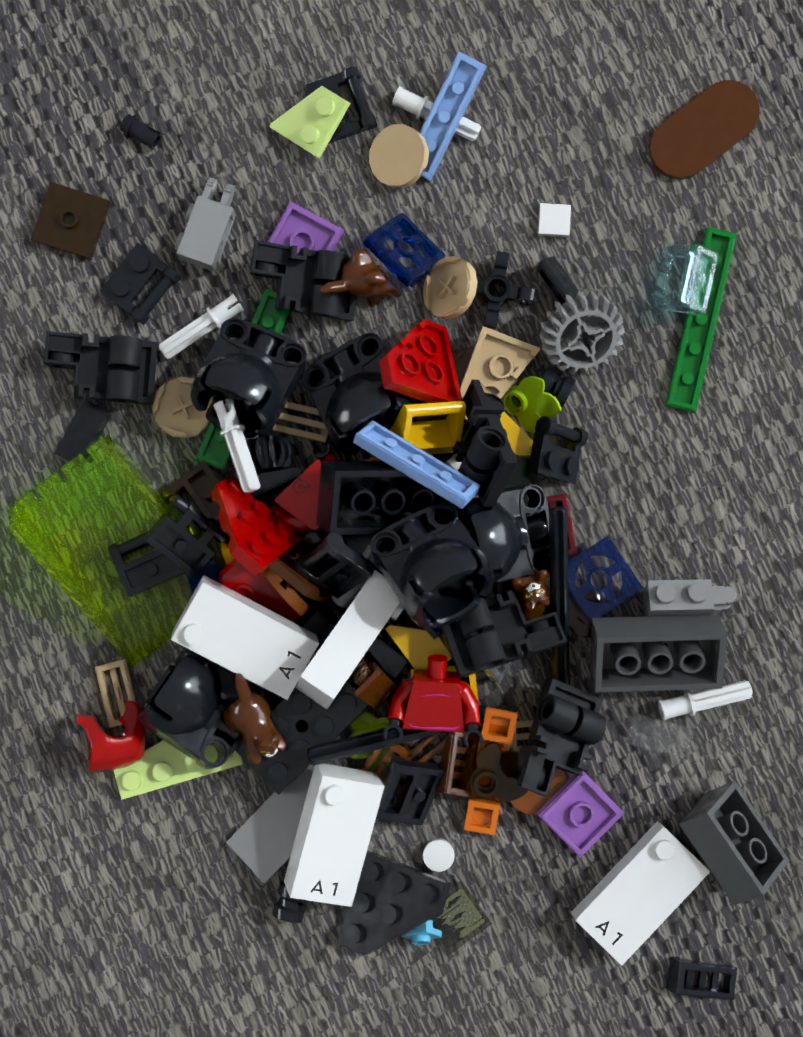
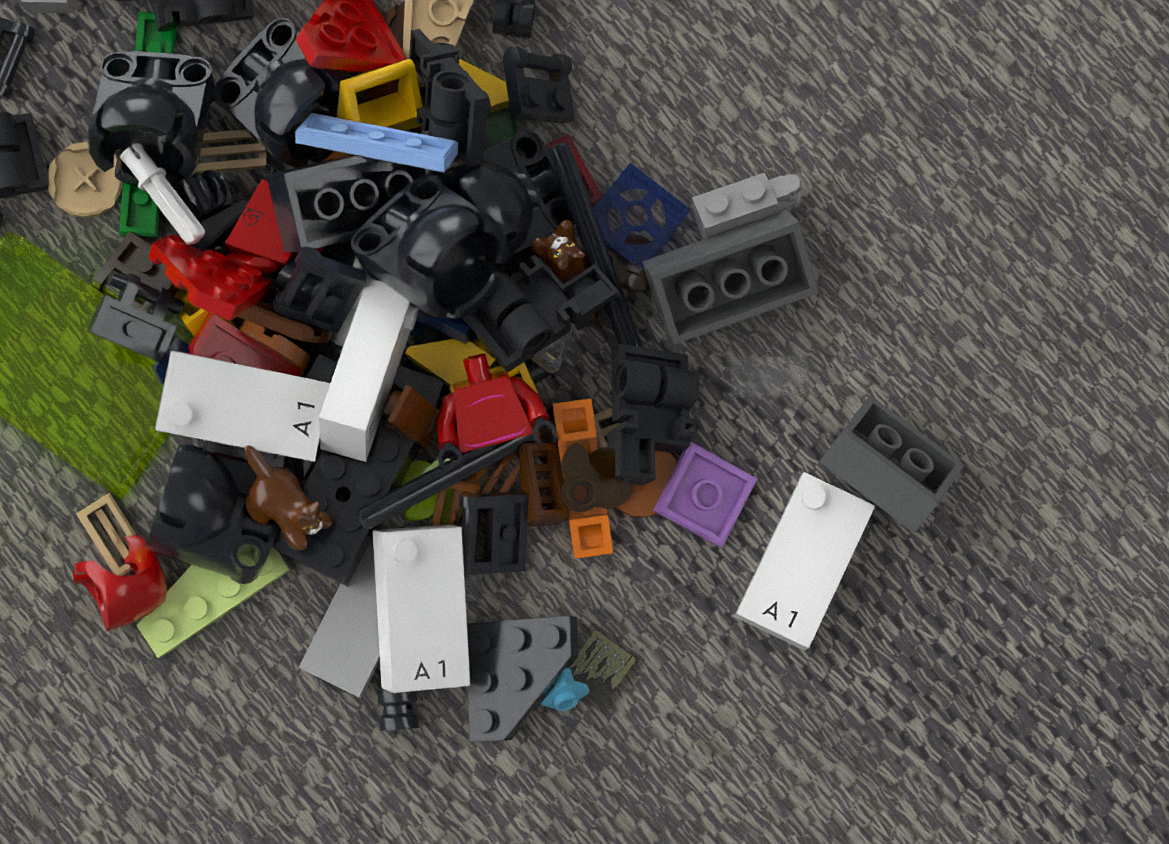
camera: 20 degrees left, 5 degrees down
(145, 571) = (103, 378): black plate -> none
(200, 327) = (75, 80): white axle -> none
(438, 855) = (555, 599): white tile -> none
(533, 402) = (493, 39): lime plate -> none
(681, 979) = (881, 647): black slope -> none
(705, 699) = (807, 317): white axle -> none

